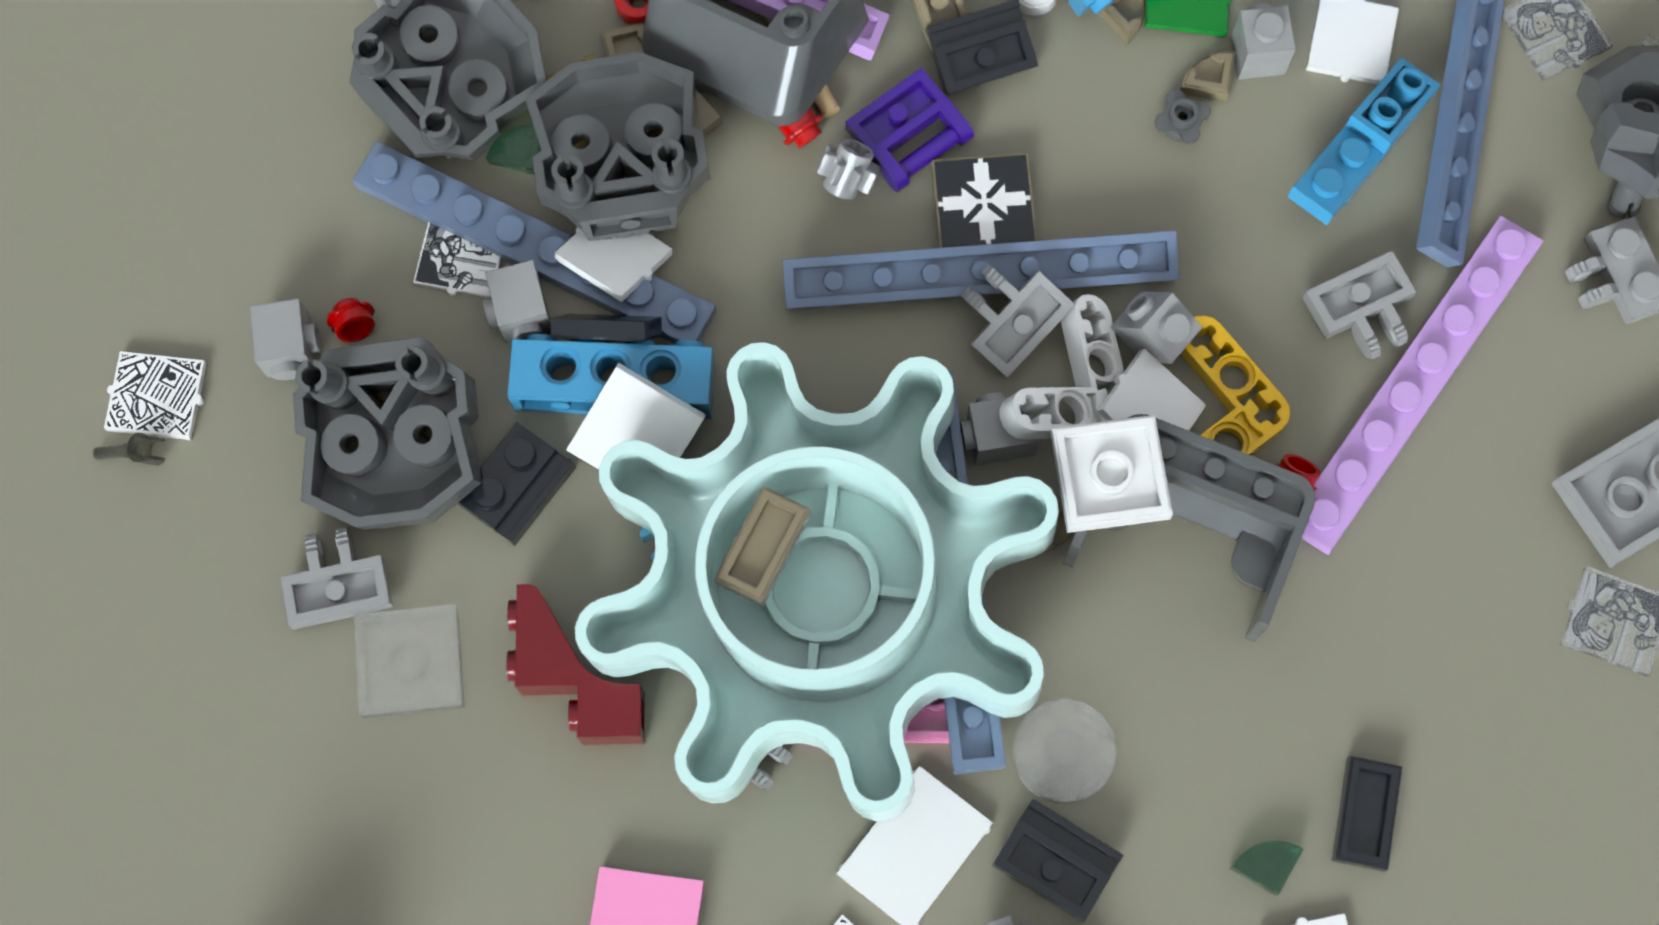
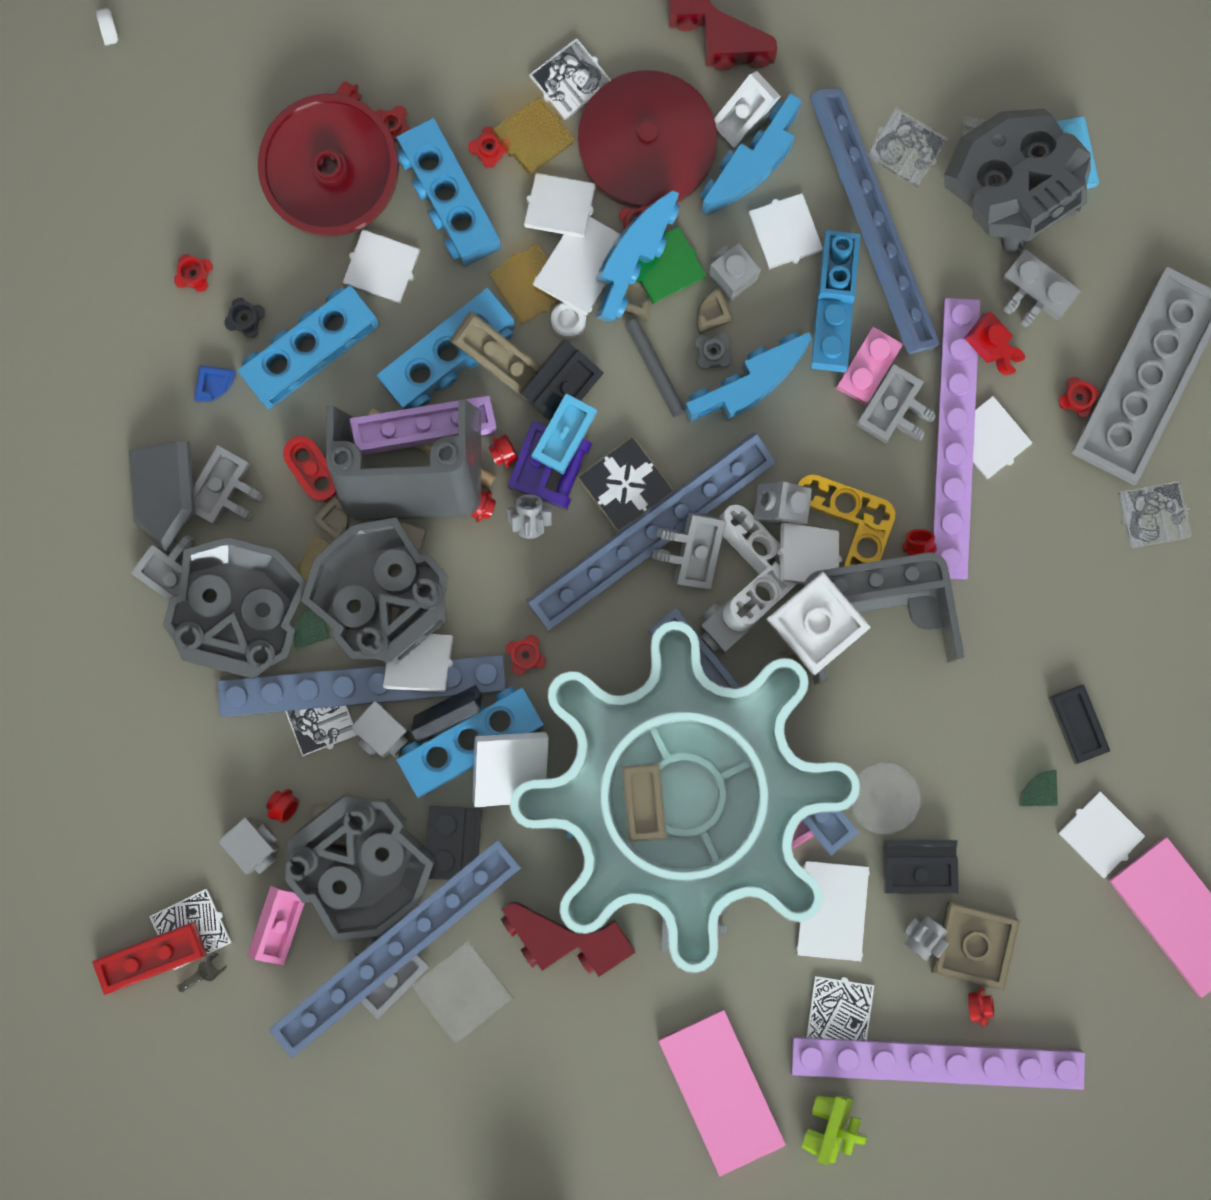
camera: 35 degrees left, 10 degrees up
(86, 396) = (149, 958): none -> red tile
(250, 447) = (276, 926): none -> bright pink plate
(363, 551) = (394, 949): none -> sand blue plate
(737, 309) = (528, 645): none -> red plate
(865, 83) = (503, 451): none -> red plate
(948, 98) = (564, 433): none -> medium azure plate
(1102, 97) = (655, 367): none -> dark grey bar
(1226, 176) = (763, 374): none -> dark azure slope
(1360, 239) = (869, 366): none -> bright pink plate
(1466, 414) = (996, 438): none -> white piece
(1529, 292) = (991, 342): none -> red plate
(1613, 417) = (1086, 390): none -> red plate

